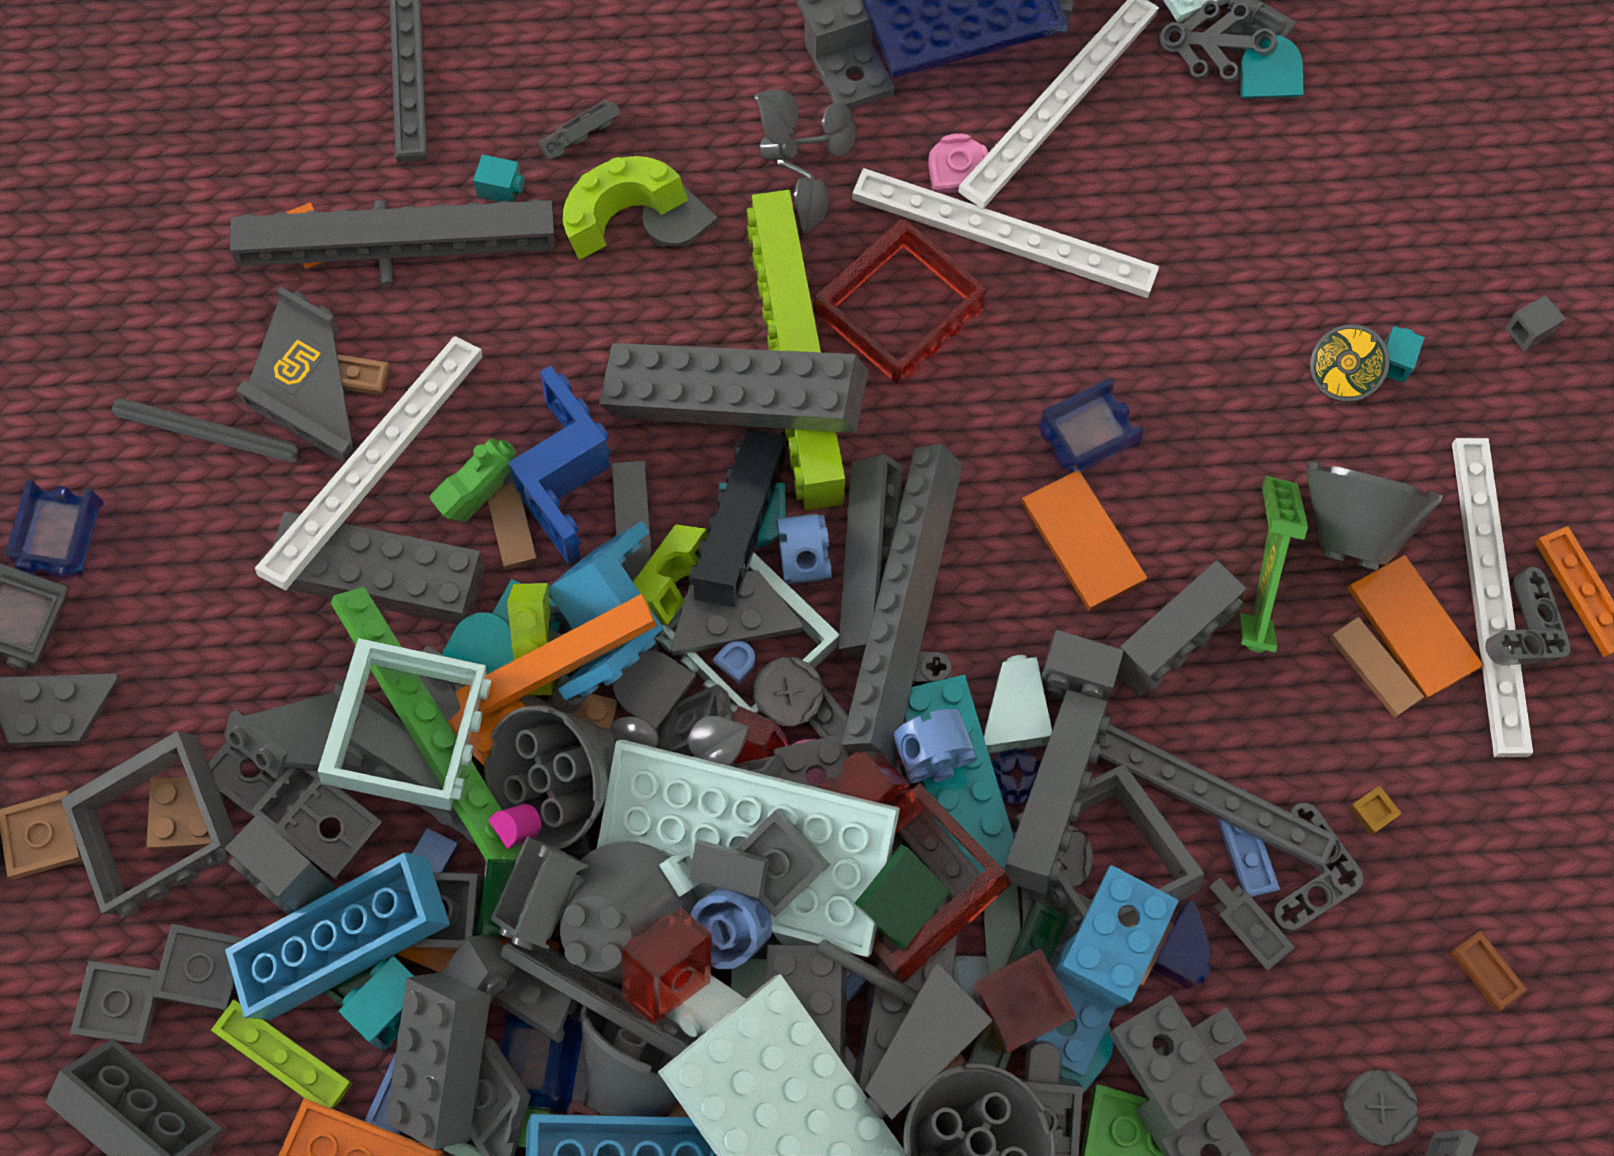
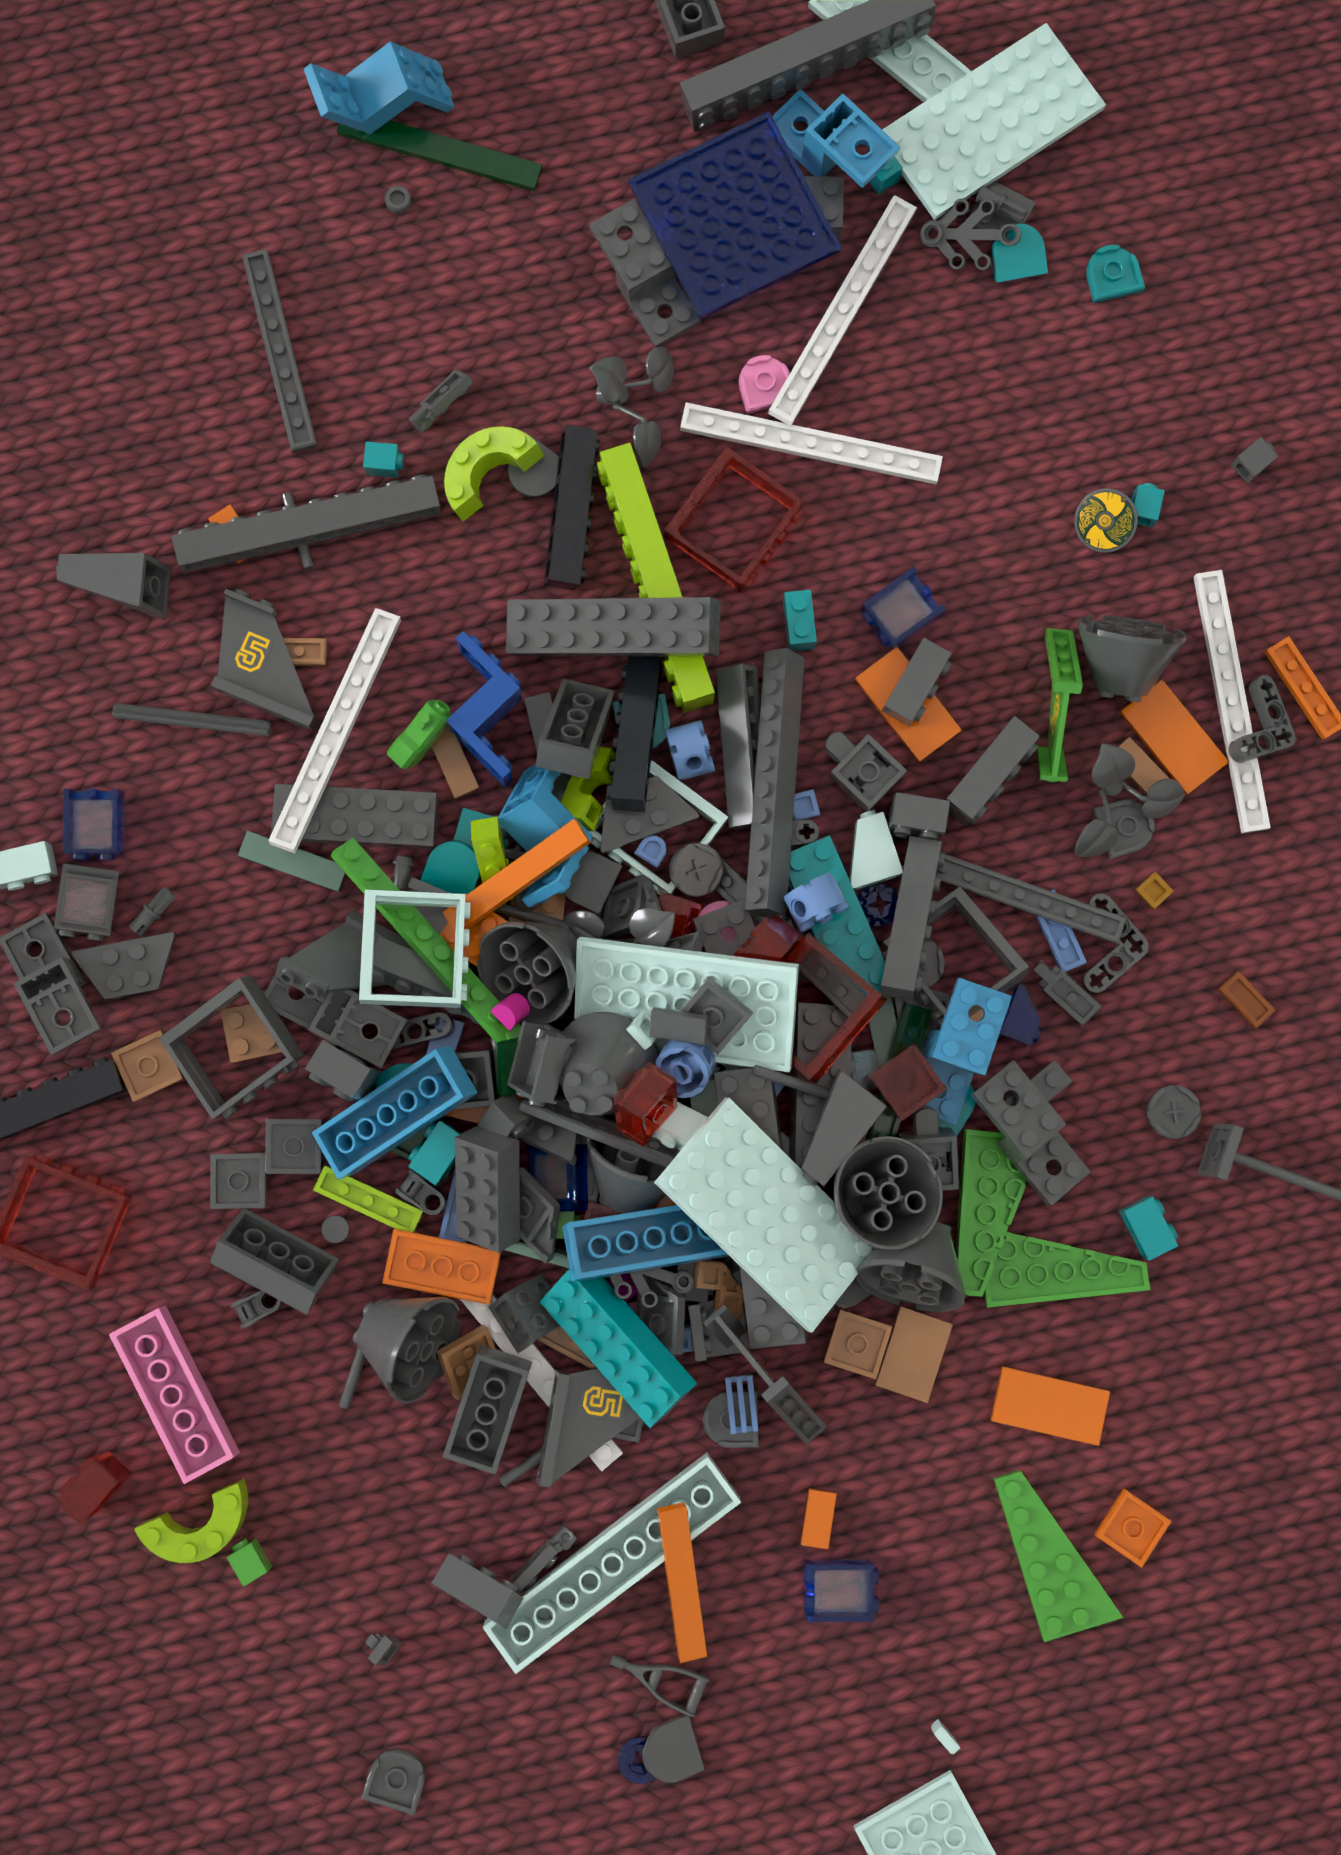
camera: 10 degrees left, 15 degrees up
(97, 644) = (152, 911): none -> dark grey axle
(161, 259) = (119, 577): none -> dark grey slope
(229, 1089) = (335, 1229): none -> dark grey tile
(286, 612) = (298, 864): none -> sand green tile
(350, 1054) = (420, 1193): none -> dark grey piece
(416, 831) = (433, 1020): none -> dark grey beam
(421, 636) = (402, 872): none -> dark grey pin
(664, 498) = (575, 728): none -> dark grey brick
(708, 260) = (571, 507): none -> black brick
(902, 897) = (809, 1027): dark green tile -> none
(939, 638) = (805, 806): none -> medium blue tile
(963, 420) = (799, 620): none -> teal brick
(1018, 605) = (860, 770): none -> dark grey brick
(1098, 511) = (917, 682): none -> dark grey brick
(1336, 636) = (1108, 773): none -> dark grey plant
(1342, 726) = (1132, 826): none -> dark grey tile
(1380, 107) = (1113, 274): none -> teal tile

